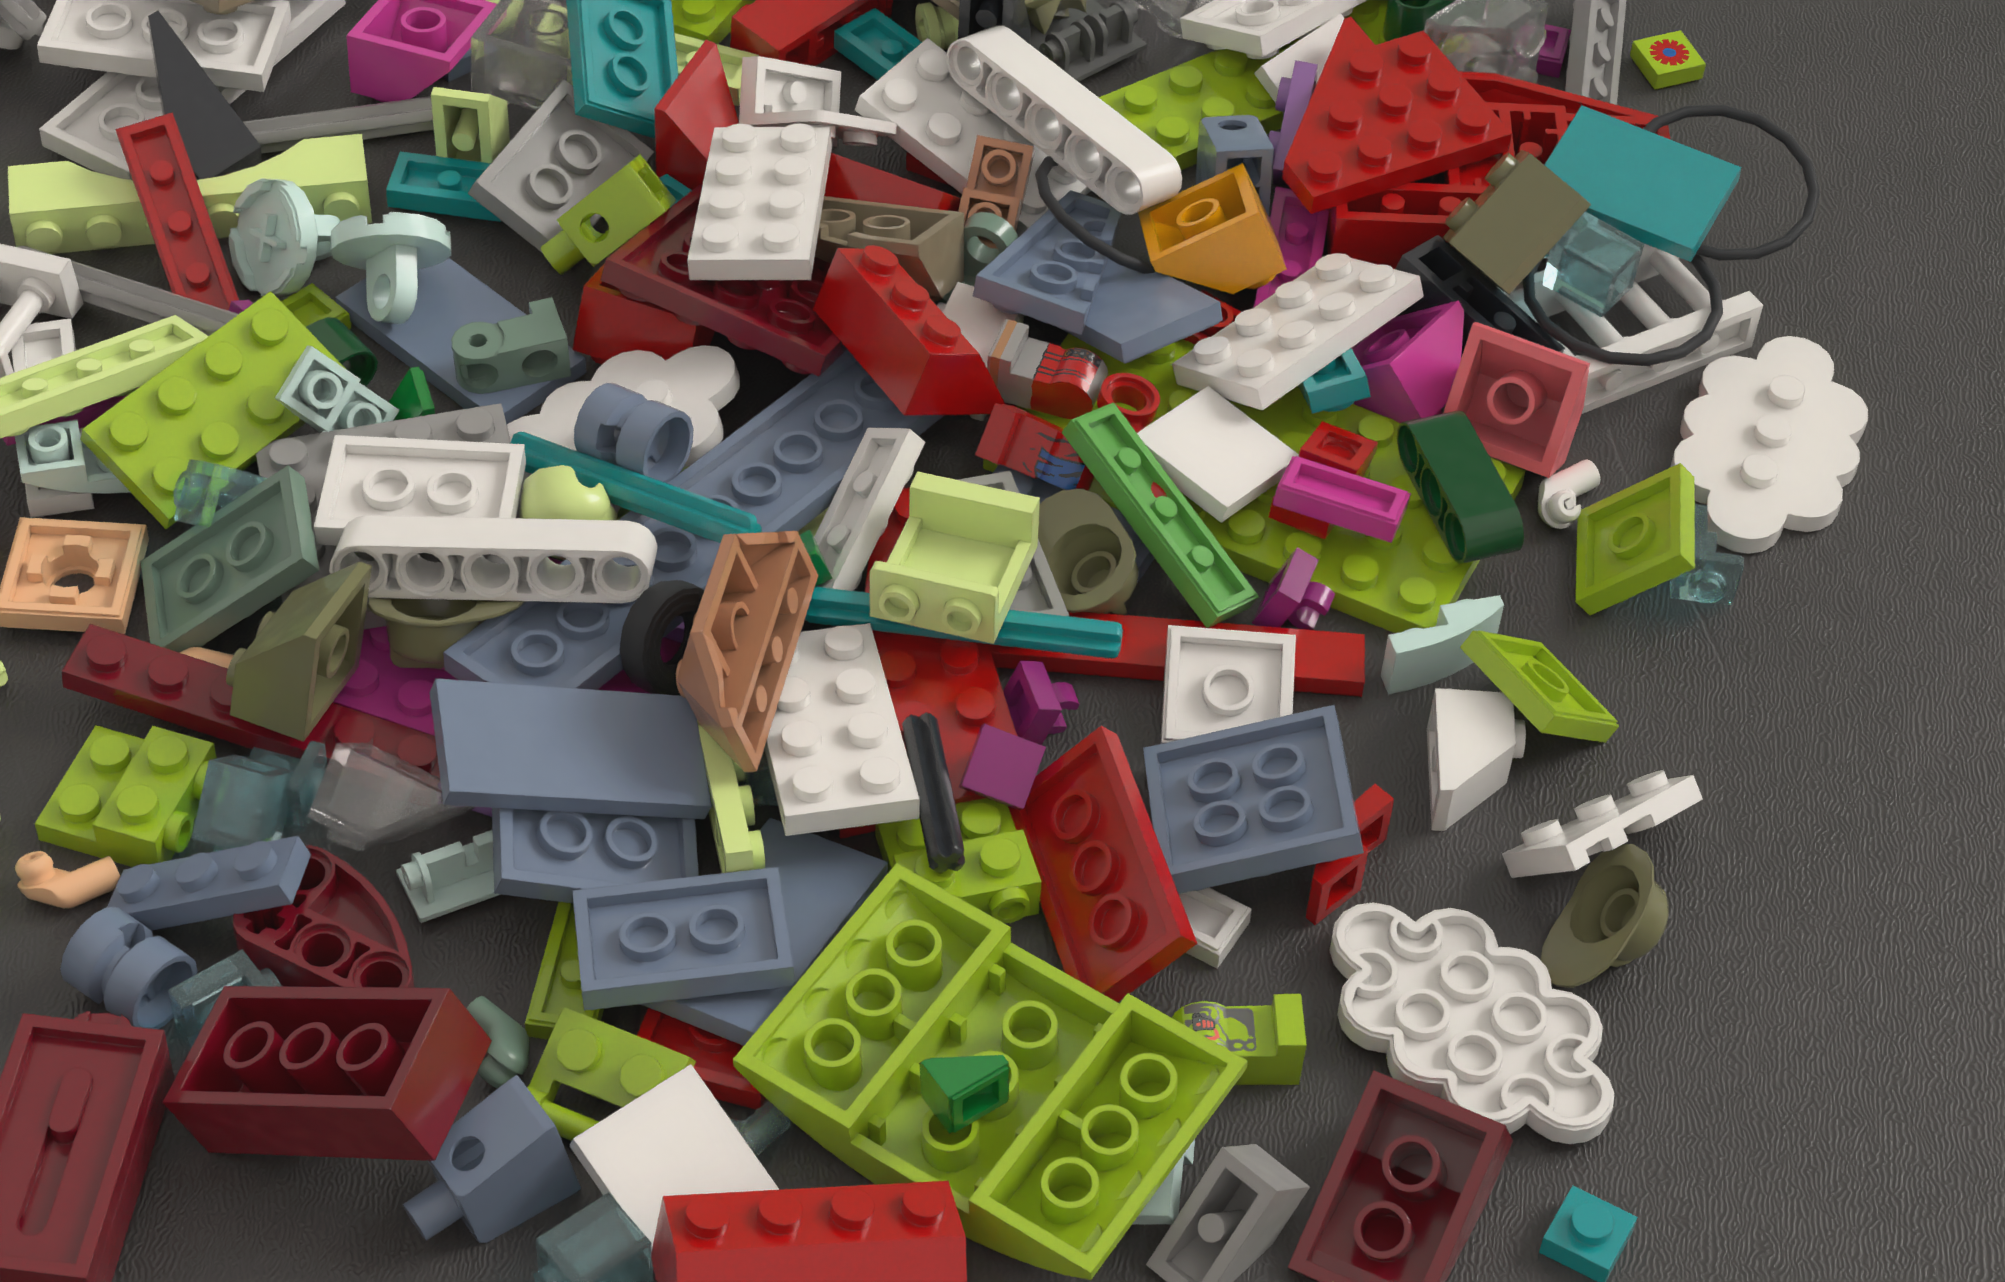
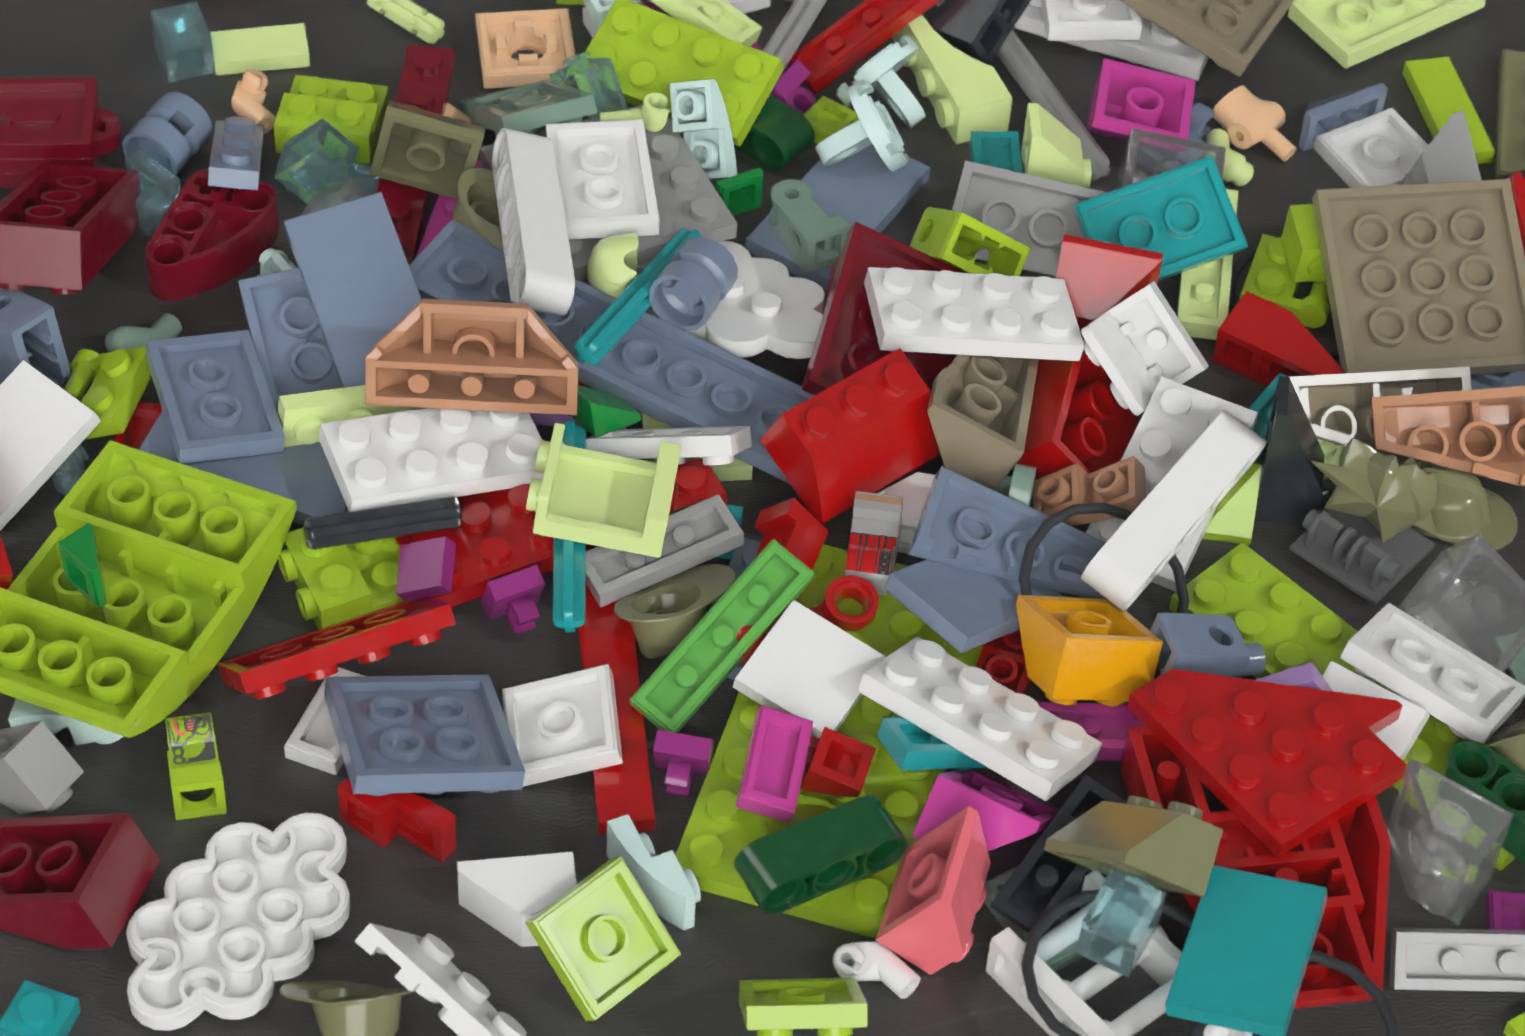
camera: 80 degrees right, 0 degrees up
(303, 440) = (652, 113): none -> yellowish green hand

